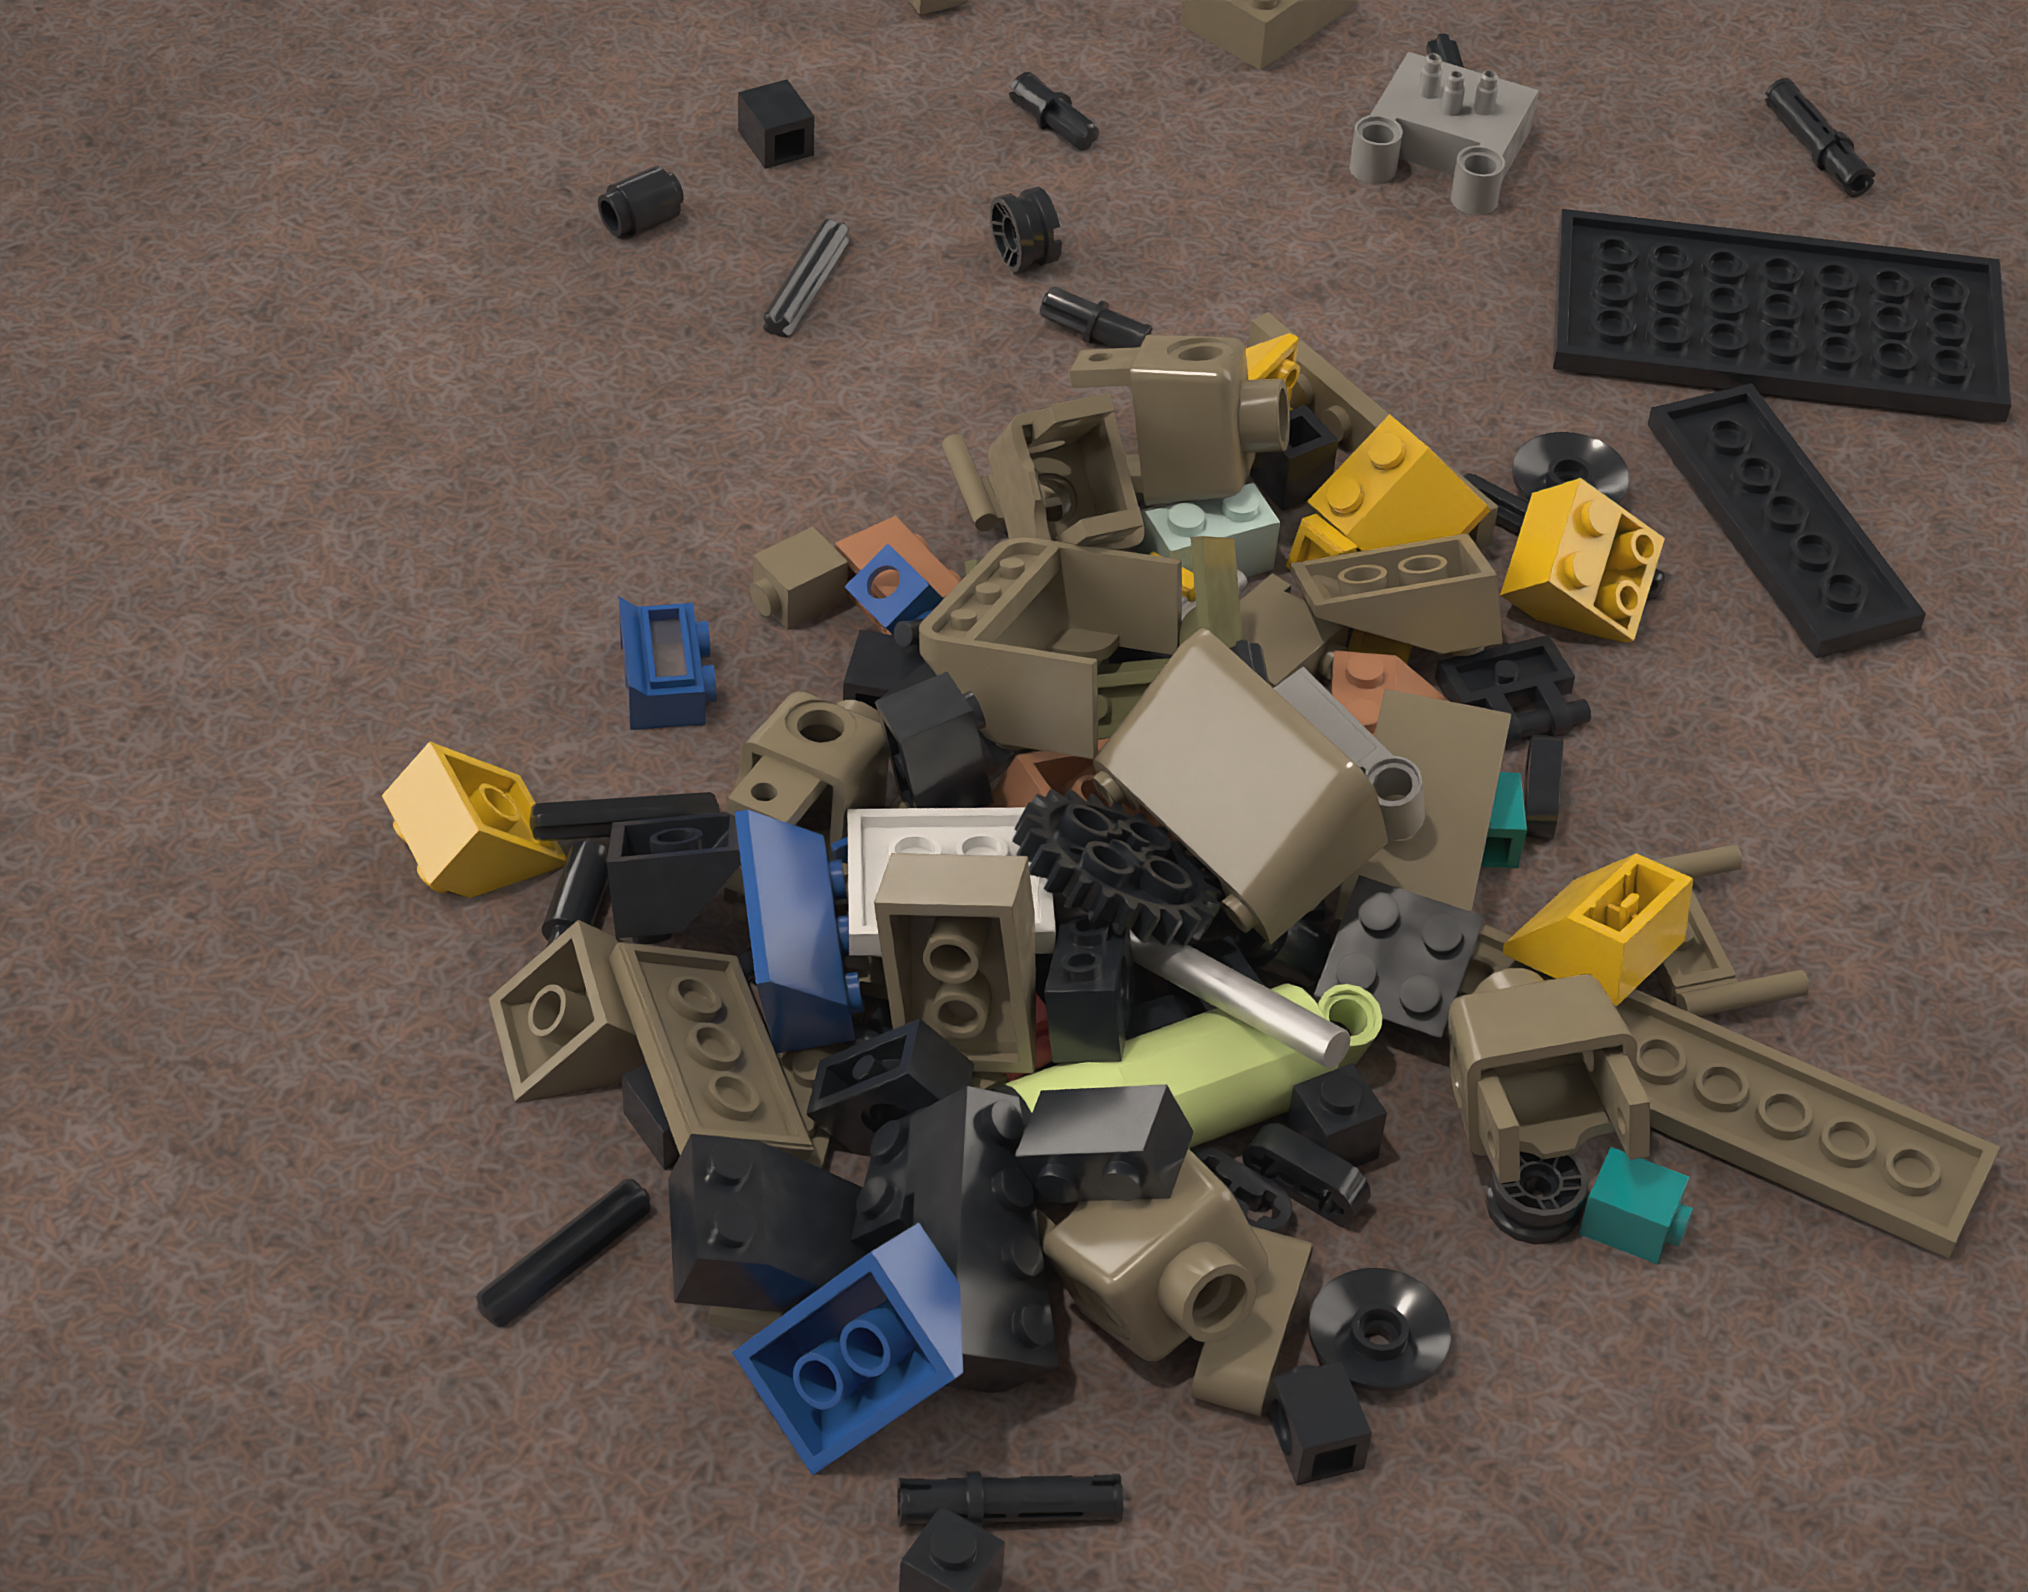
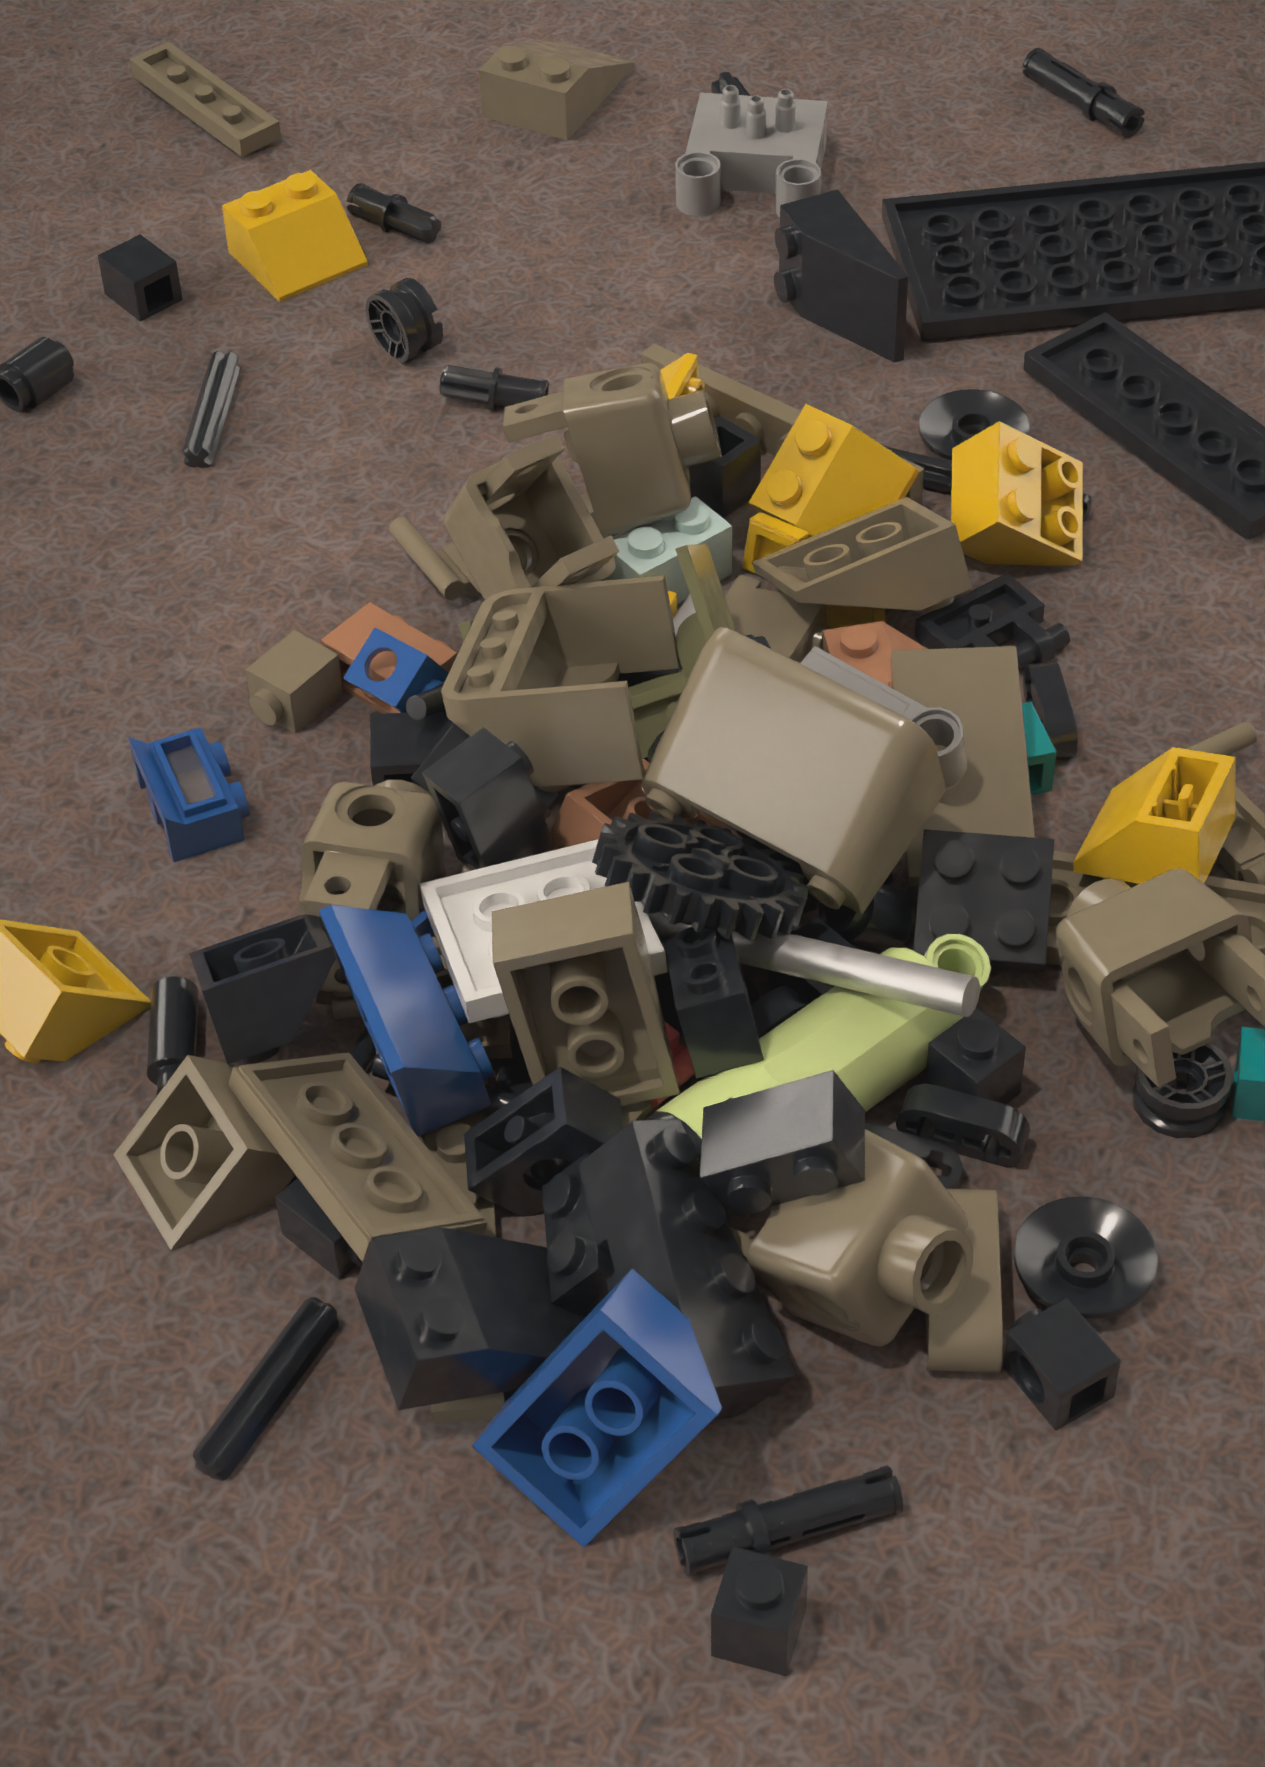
camera: 10 degrees left, 0 degrees up
(595, 816) = (171, 951): black axle -> none
(942, 113) = (292, 235): none -> yellow slope
(1484, 280) = (841, 274): none -> black slope

